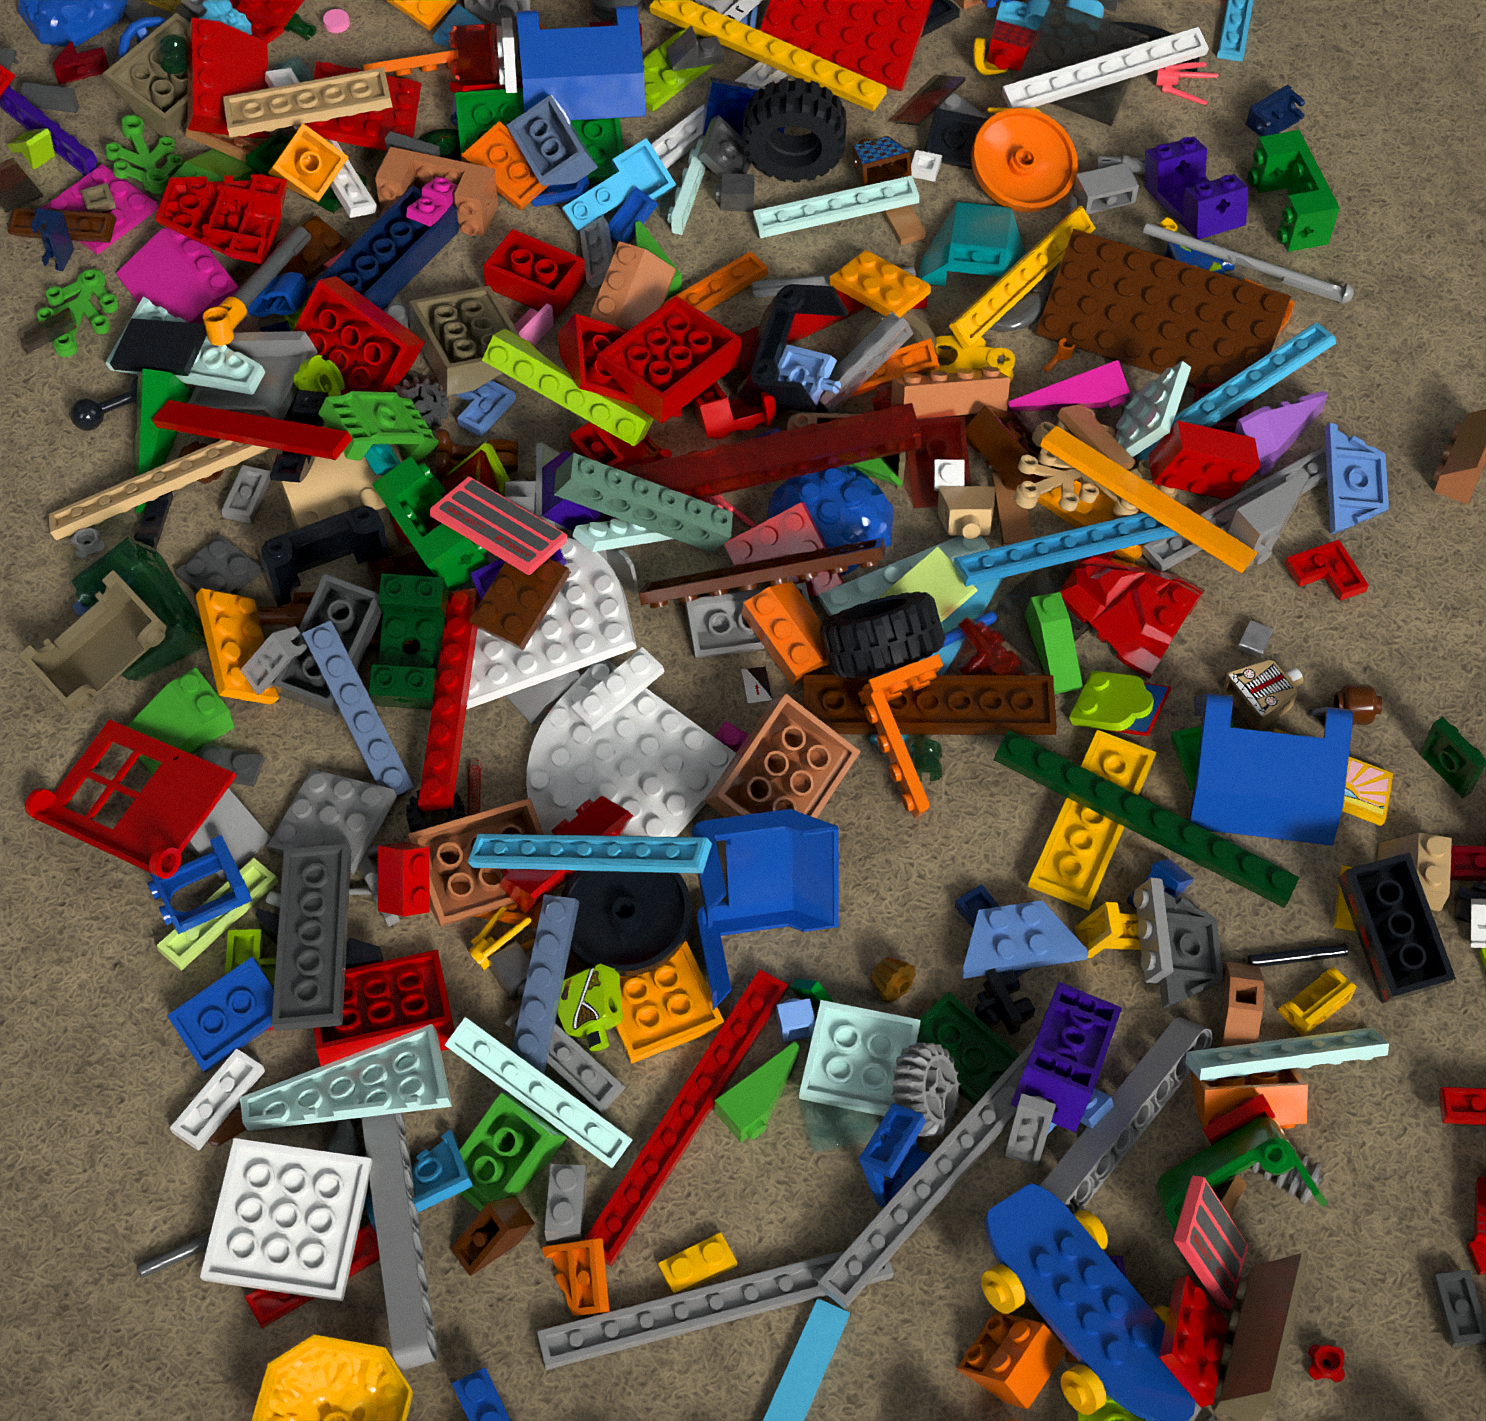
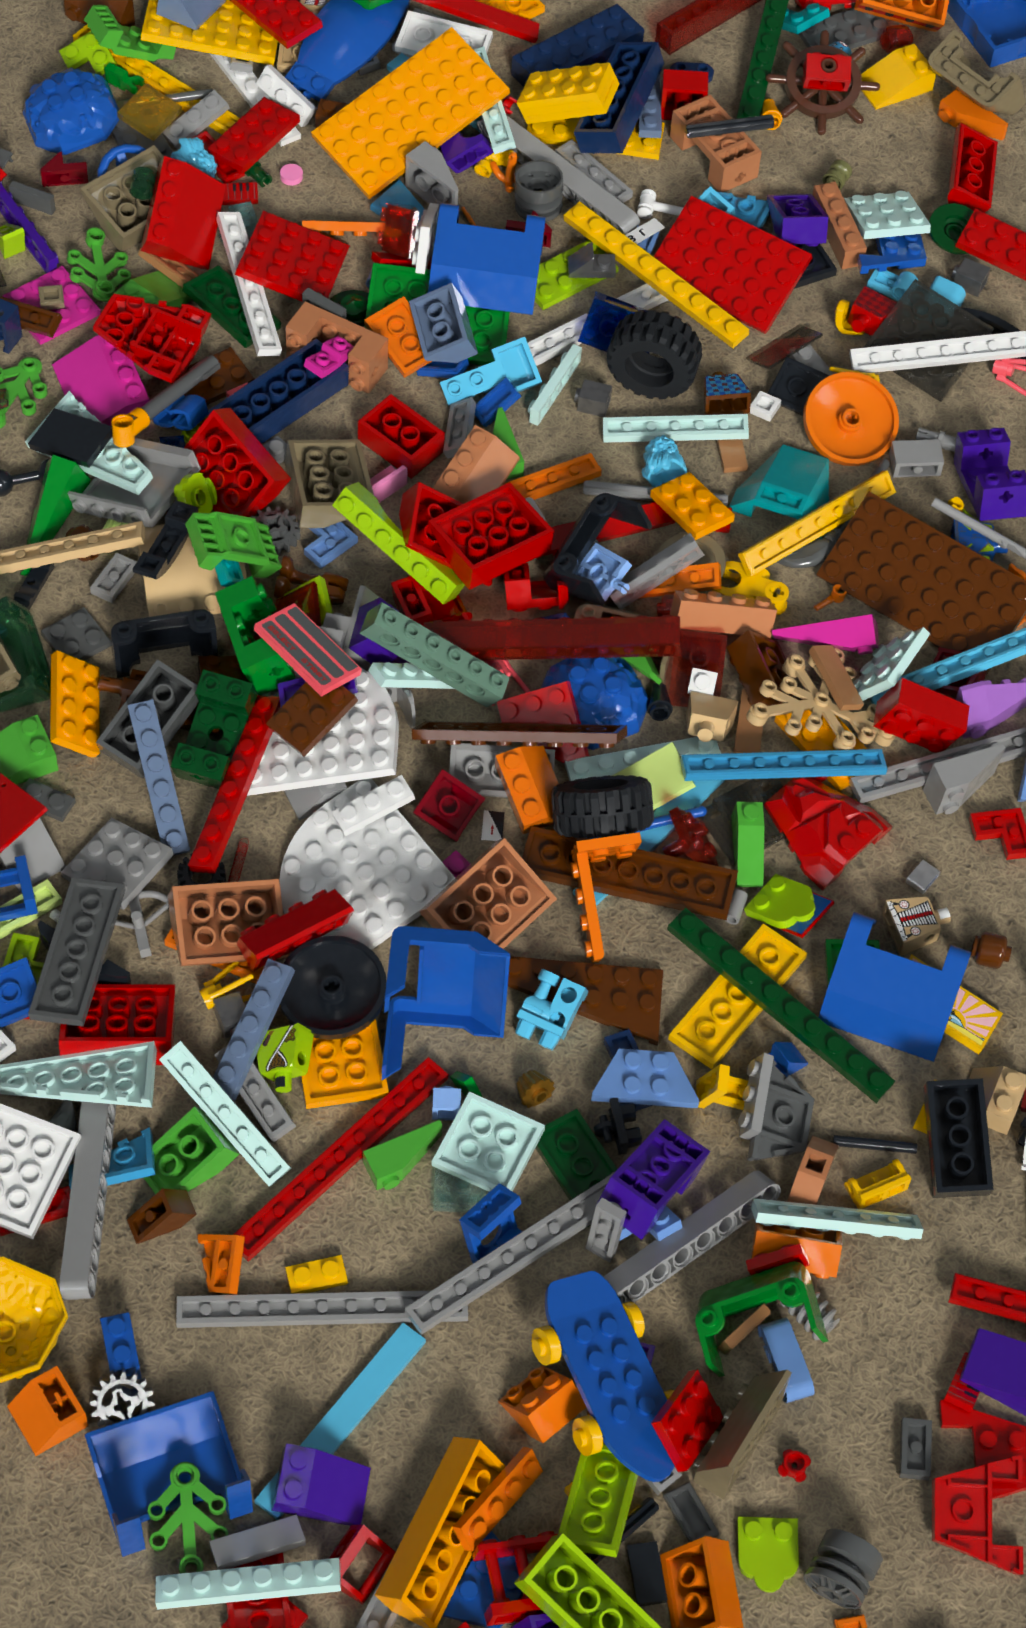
camera: 10 degrees right, 0 degrees up
(252, 429) = (128, 526): red tile -> none
(271, 659) = (99, 720): light grey hinge -> none
(285, 49) = (240, 193): none -> red tile
(307, 102) = (244, 248): tan plate -> none
(308, 163) = (232, 303): light orange slope -> none
(403, 879) = (160, 921): red brick -> none
(565, 1204) = (224, 1204): light grey brick -> none
(591, 853) = (309, 932): medium azure tile -> none
(701, 671) = (448, 805): none -> dark red slope
(723, 149) = (589, 358): flat silver plate -> none
(833, 244) = (662, 461): none -> medium azure hair
(885, 890) = (549, 1016): none -> medium azure hips
(906, 507) = (659, 703): none -> black cone
(926, 758) = (614, 916): clear green wheel -> none
(928, 1085) = (536, 1177): light grey gear -> none
(935, 849) = (615, 995): none -> reddish brown wing
(1062, 716) = (737, 905): none -> light grey piece
(1148, 499) = (863, 739): light orange tile -> none
(1210, 1242) = (722, 1348): tile -> none
(1276, 1229) = (785, 1354): none -> medium blue beam

